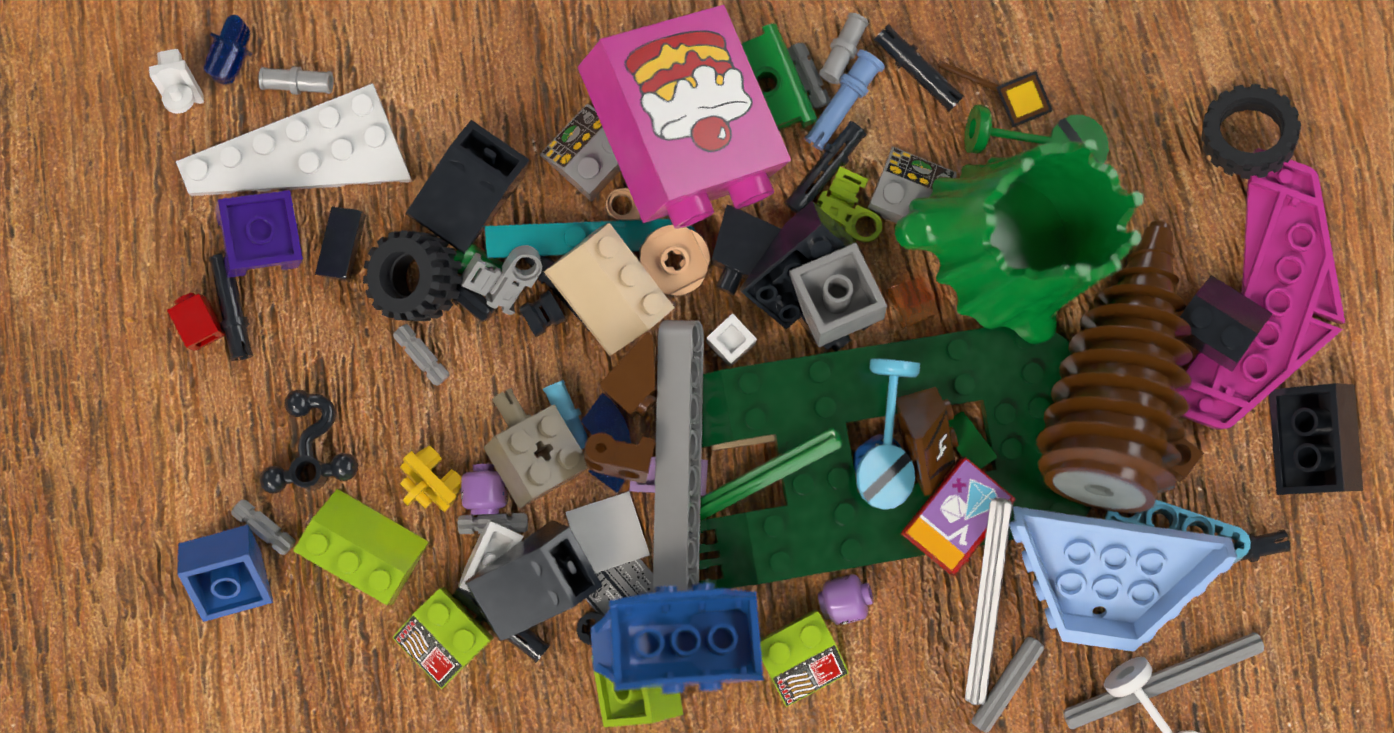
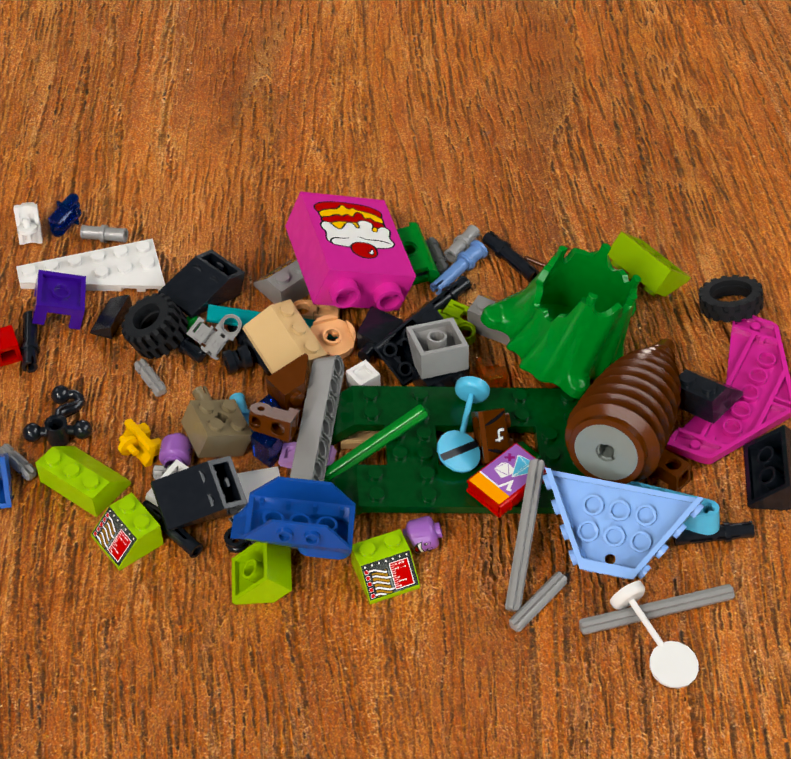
camera: 15 degrees right, 35 degrees down
(1123, 69) = (641, 259): none -> lime slope

